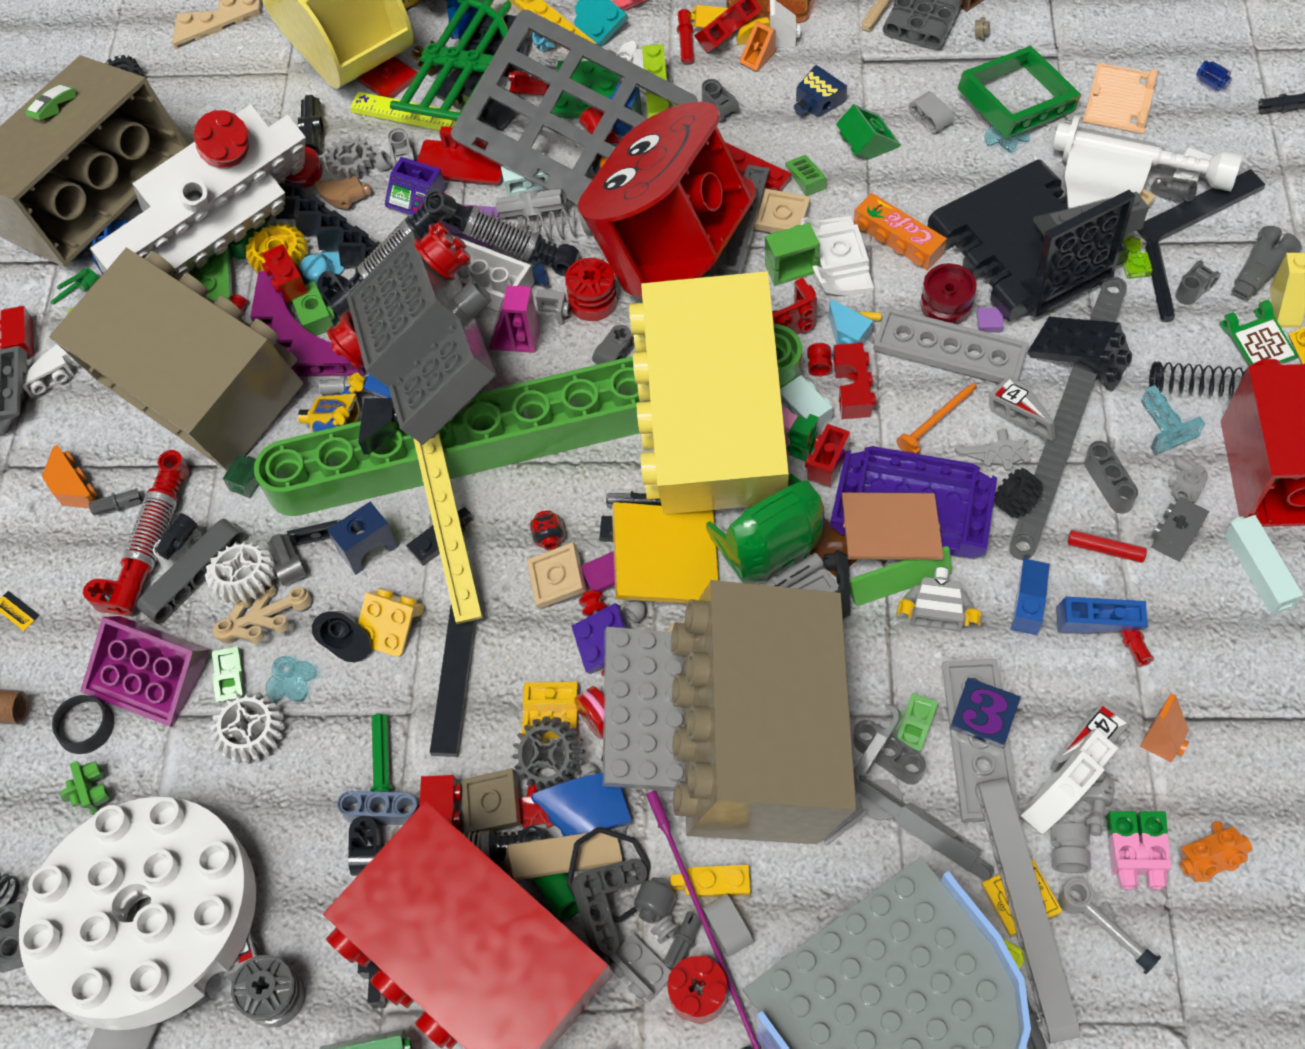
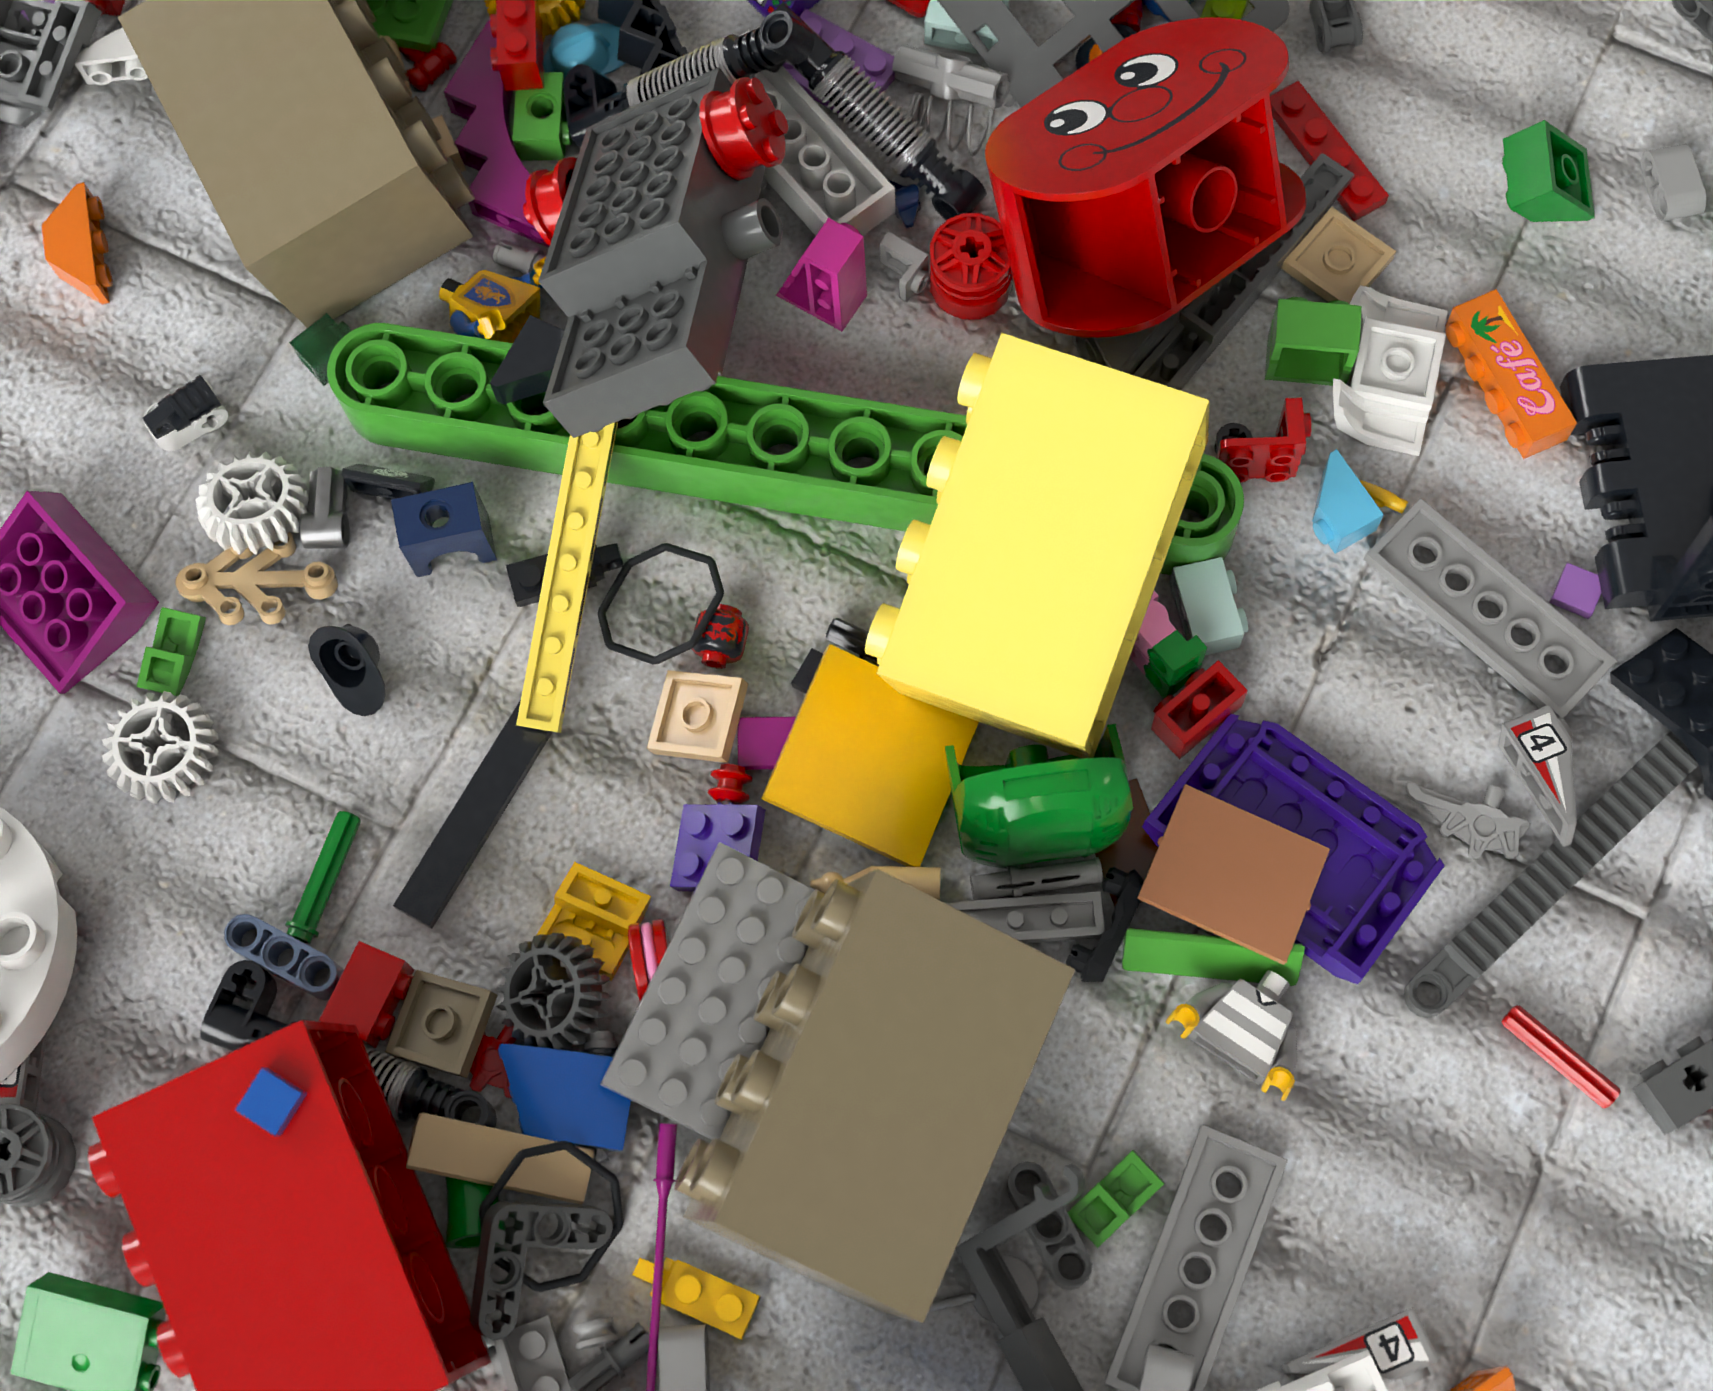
camera: 25 degrees right, 10 degrees up
(115, 502) = (131, 308): dark grey axle -> none
(140, 558) = (120, 418): red piece -> none
(188, 572) = (182, 467): dark grey beam -> none
(290, 683) = (253, 705): clear light blue plate -> none
(388, 619) = (426, 671): yellow bracket -> none
(429, 853) = (271, 1101): none -> blue tile
(525, 547) = (701, 626): none -> black piece
(614, 346) = (943, 382): dark grey piece -> none
(634, 610) = (787, 825): light grey hinge -> none
(654, 900) = (599, 1284): dark grey head -> none
(811, 186) = (1412, 232): bright green slope -> none
(819, 93) = (1505, 70): dark blue torso -> none
(819, 357) = (1268, 540): red wheel -> none
(852, 363) = (1293, 631): red arch -> none
(909, 443) = (1336, 742): orange piece -> none
(948, 293) = (1529, 520): dark red wheel -> none
(985, 712) = (1223, 1238): dark blue tile -> none
(1018, 493) = (1462, 909): black tyre -> none
(1030, 597) = (1396, 1081): blue slope -> none
(1100, 615) = (1486, 1169): blue slope -> none
(1110, 466) = (1636, 928): dark grey beam -> none
(1135, 641) = (1518, 1228): red pin -> none

